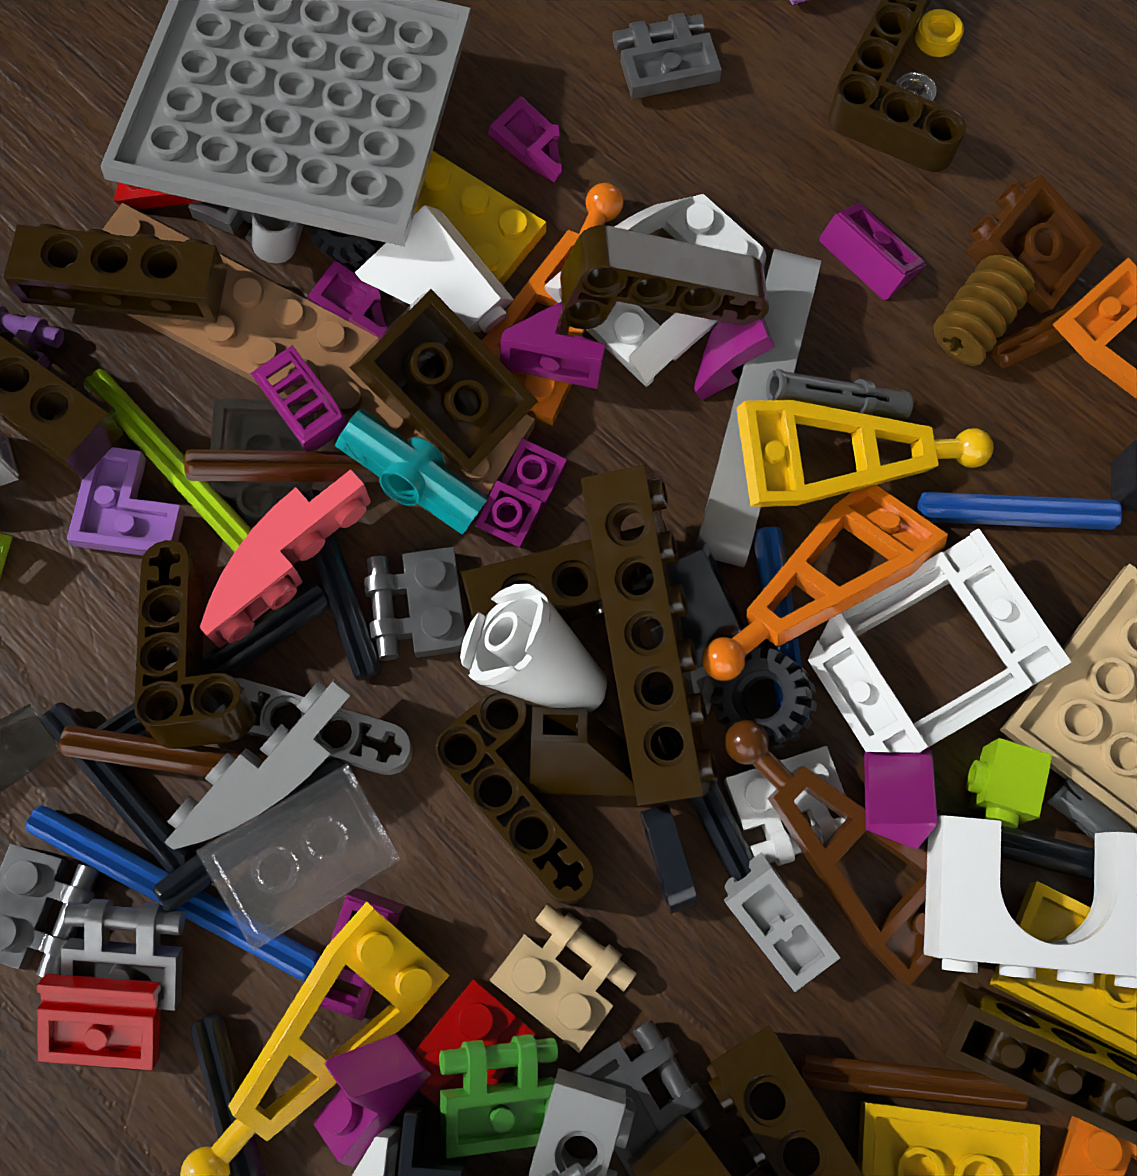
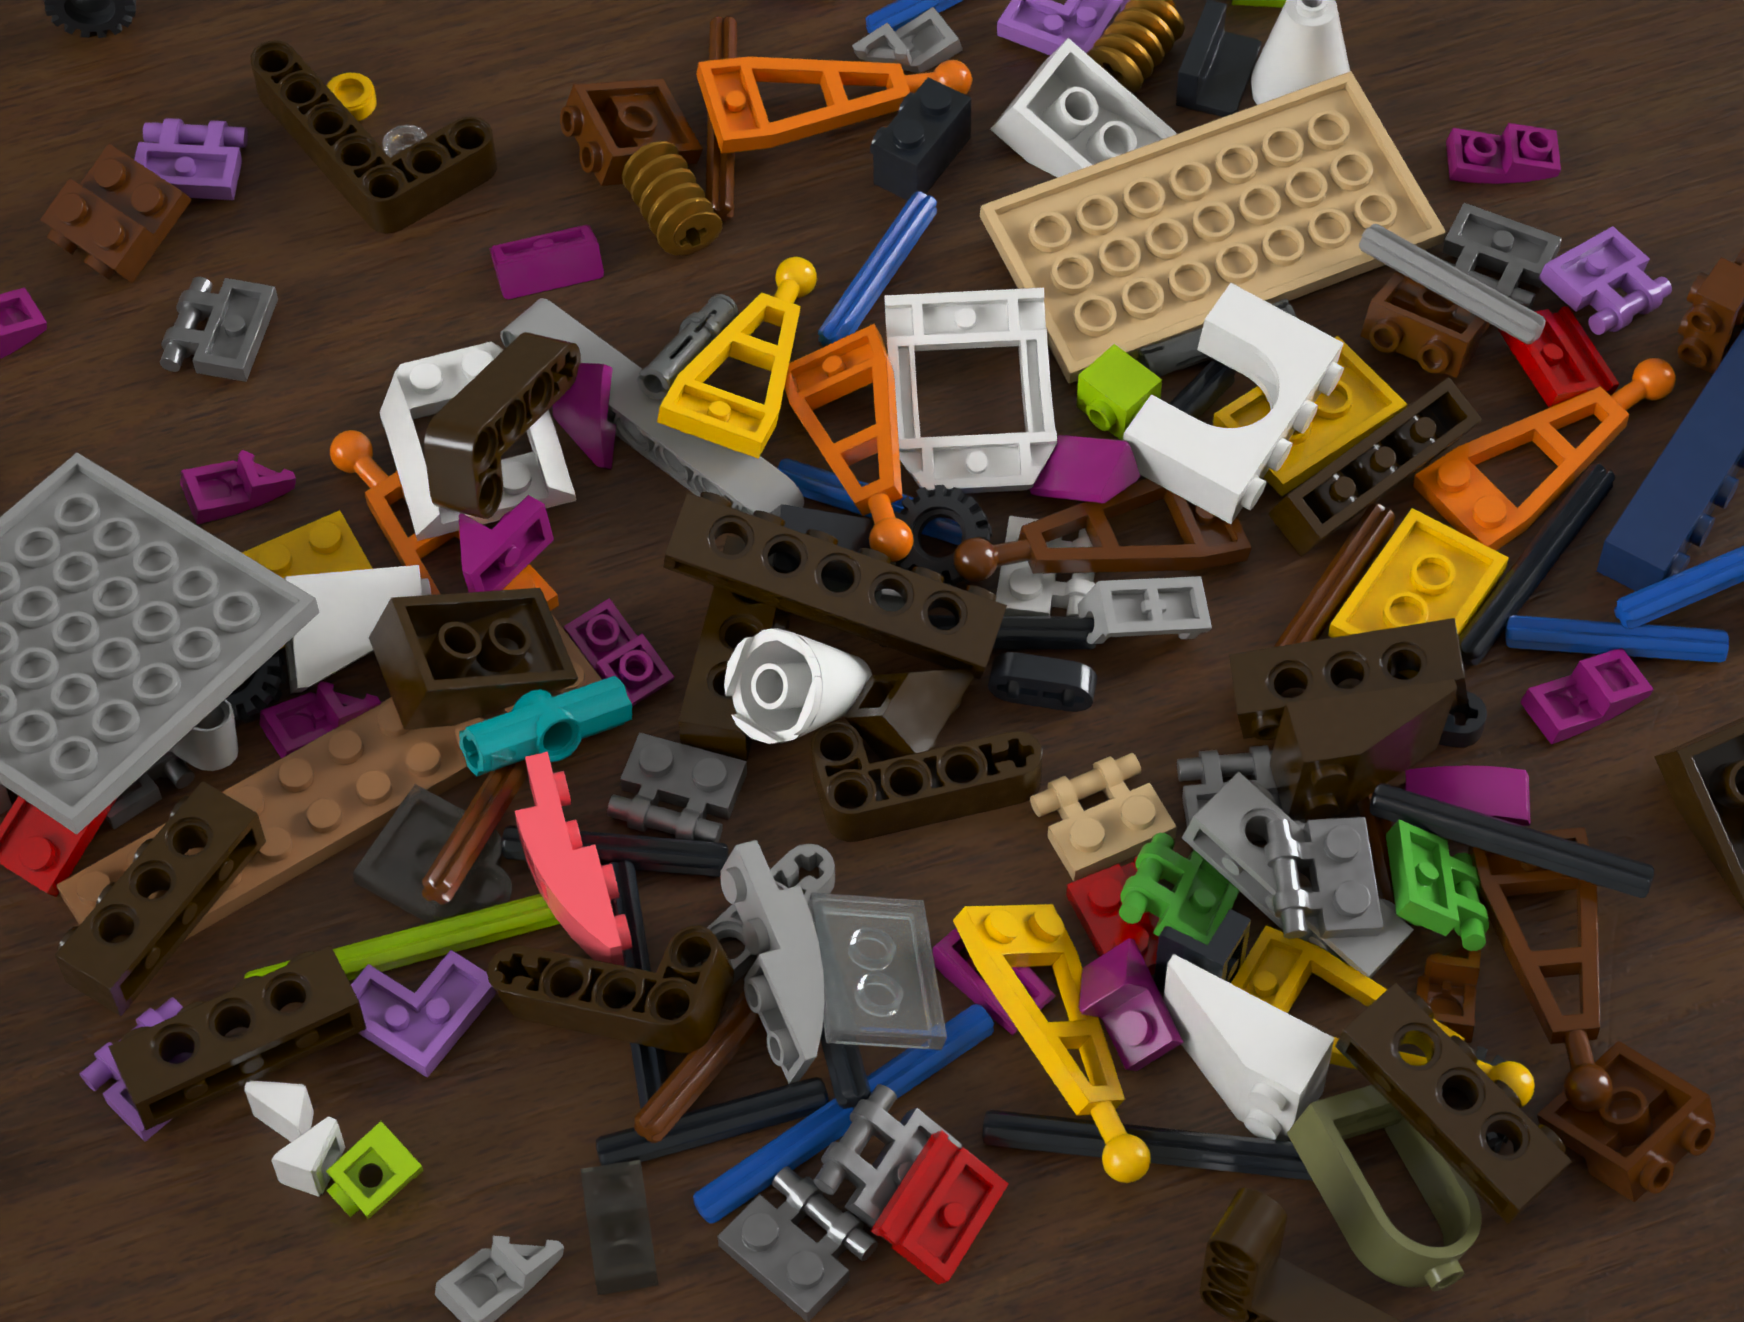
camera: 60 degrees left, 15 degrees down
(323, 428) = (424, 766): magenta slope -> none

